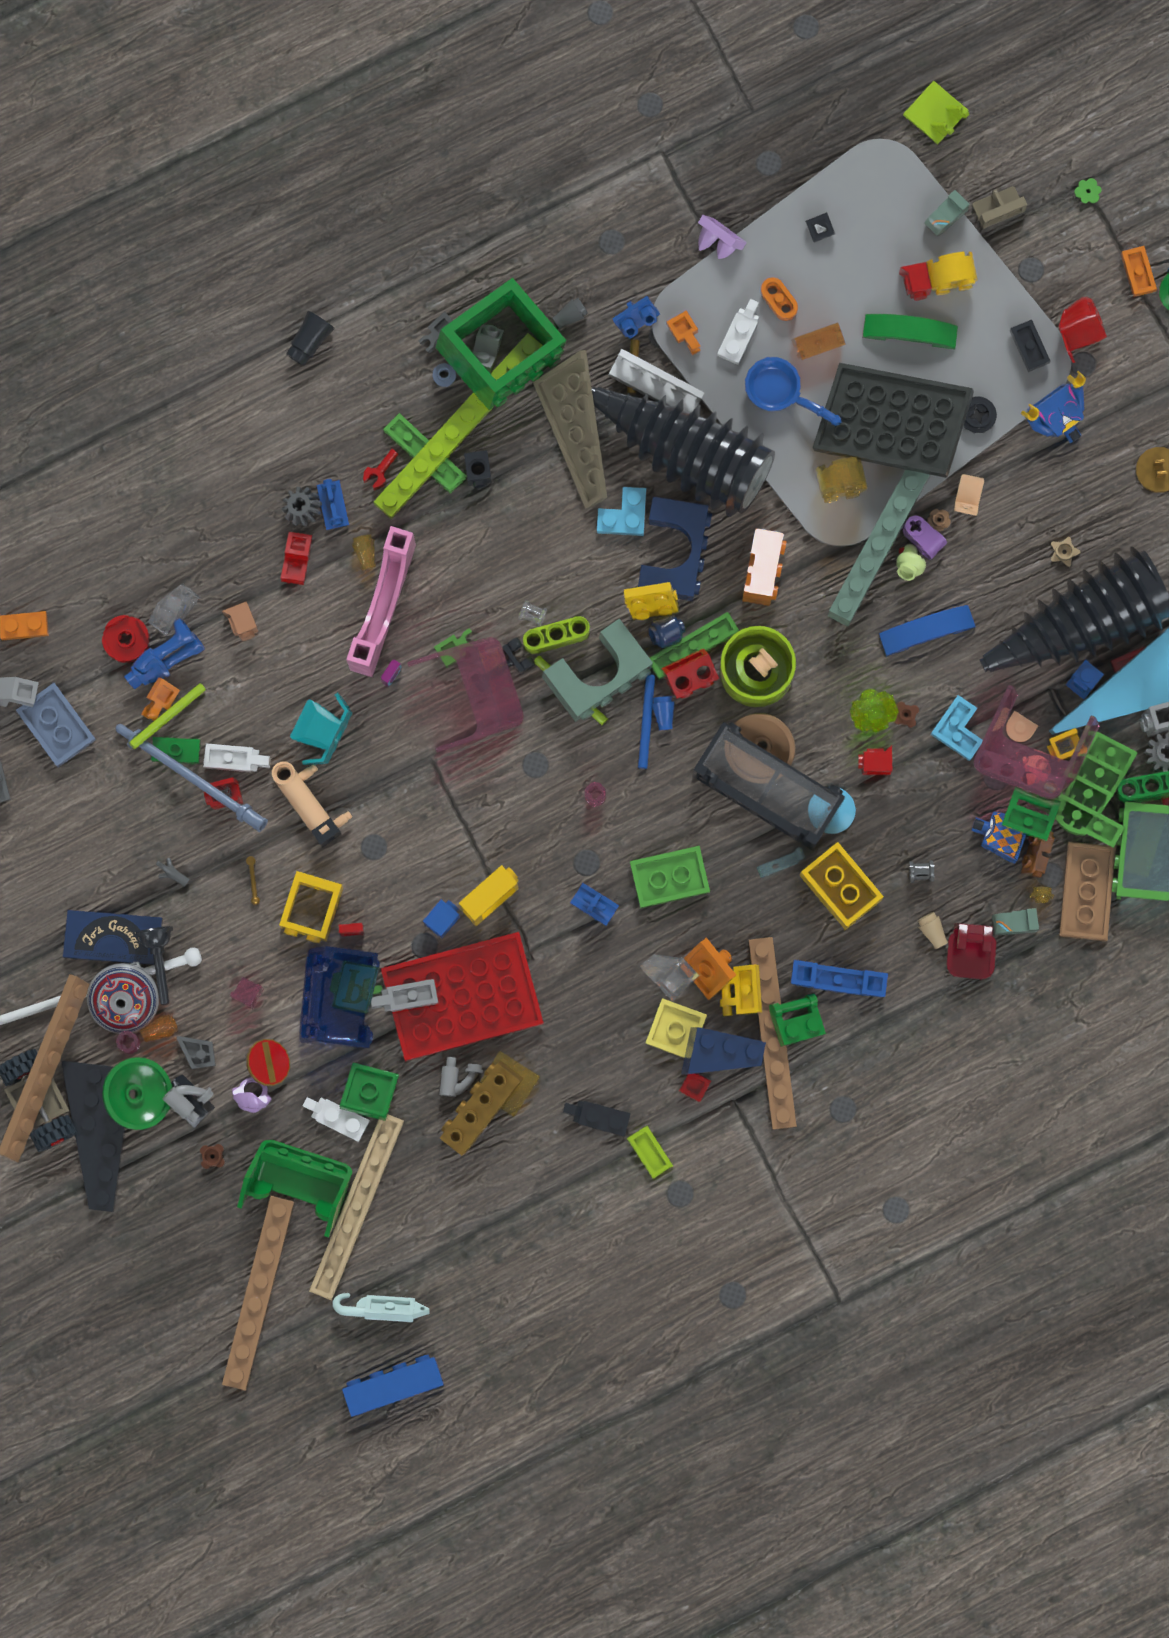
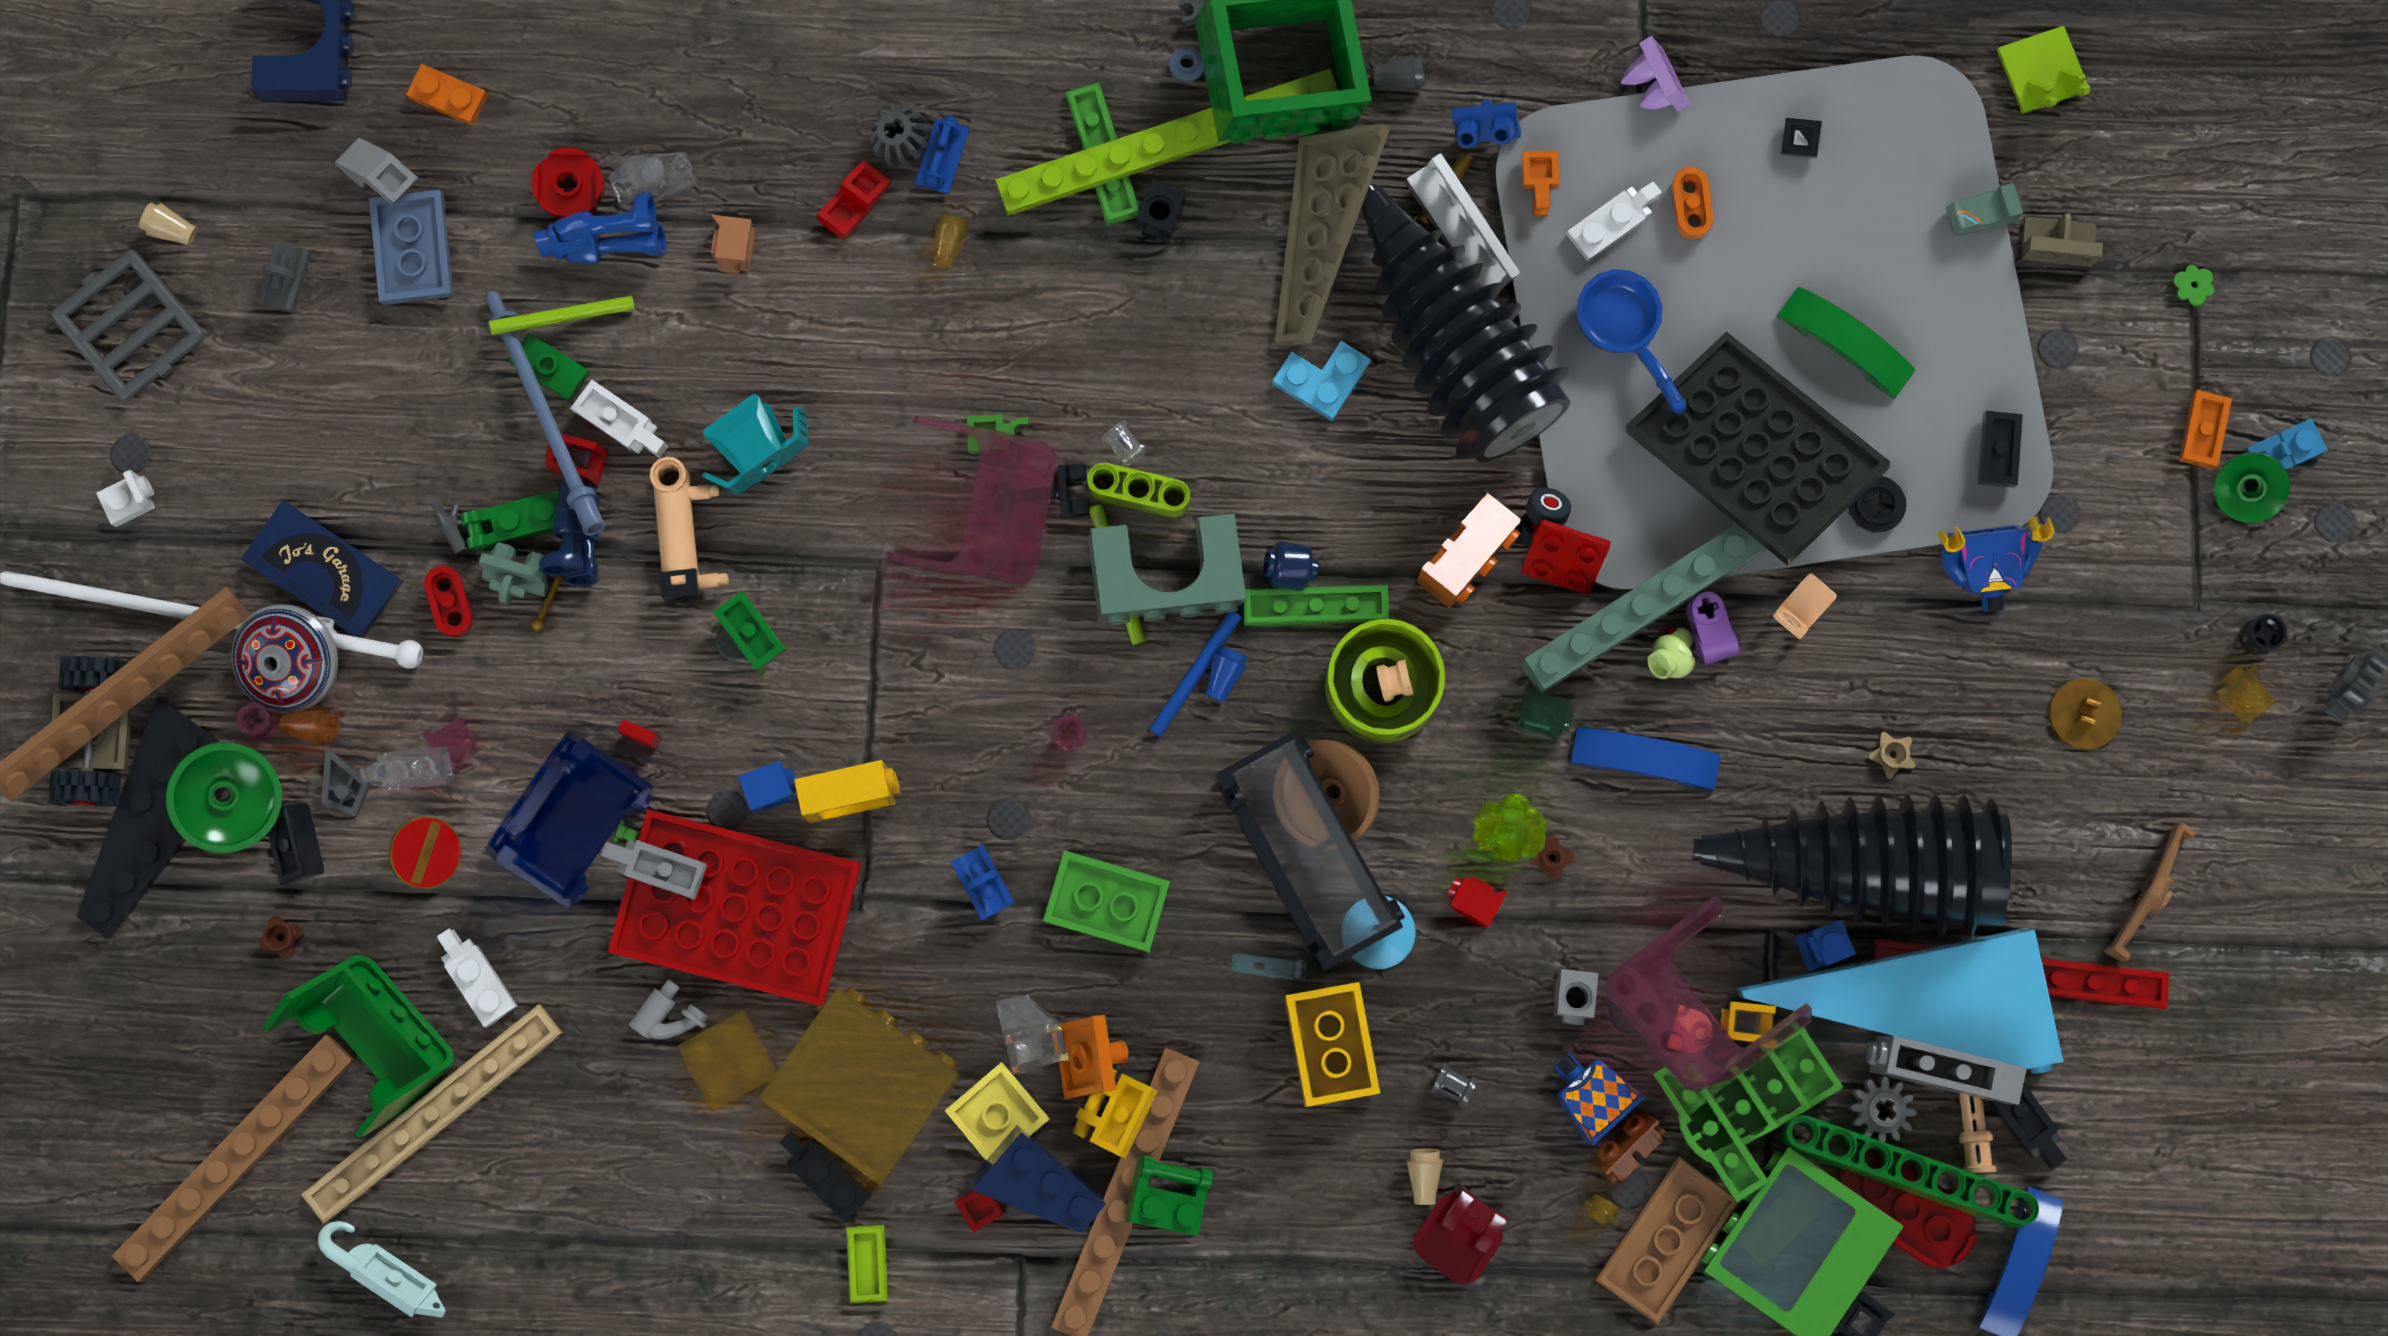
camera: 25 degrees right, 0 degrees up
(156, 940) = (368, 603): black piece -> none
(161, 696) = (570, 284): orange plate -> none
(177, 1101) = (275, 846): light grey plant -> none
(197, 915) = (447, 603): none -> red plate
(208, 848) = (511, 521): none -> green plate
(226, 880) = (512, 577): none -> sand green hips
(234, 1019) = (411, 768): none -> clear hinge
(248, 1101) = (368, 891): lavender piece -> none
(258, 850) = (577, 551): none -> dark blue piece
(315, 883) = (627, 695): yellow window -> none
(354, 986) = (596, 814): piece -> none
(369, 1091) = (537, 967): green plate -> none
(380, 470) = (1030, 144): red bar -> none
(381, 837) = (749, 631): none -> green panel
(391, 672) = (889, 420): magenta tile -> none
(395, 565) = (873, 368): bright pink arch -> none
(481, 1107) = (670, 1075): pearl gold brick -> none
(487, 345) = (1265, 58): light grey slope -> none
(590, 1054) = (860, 1084): none -> clear yellow panel
(651, 601) = (1291, 513): yellow plate -> none
(688, 667) = (1289, 630): red brick -> none
(691, 521) = (1349, 509): dark blue arch -> none
(812, 540) = (1556, 551): none -> red plate
(818, 341) = (1714, 287): clear orange hinge -> none
(839, 979) = (1257, 1171): blue slope -> none
(841, 479) = (1641, 489): clear yellow brick -> none
(856, 636) = (1544, 714): none -> clear green brick
(916, 280) = (1893, 278): red window -> none
(945, 521) = (1735, 617): medium nougat plate -> none
(952, 272) = (1948, 292): yellow brick -> none
(952, 729) = (1603, 914): medium azure plate -> none
(965, 774) = (1584, 981): none -> light grey brick
(1015, 922) = (1544, 1228): sand green leg -> none
(1020, 728) = (1699, 962): light nougat piece -> none
(1027, 820) = (1639, 1101): green plate -> none
(1081, 325) = (2086, 459): red piece -> none

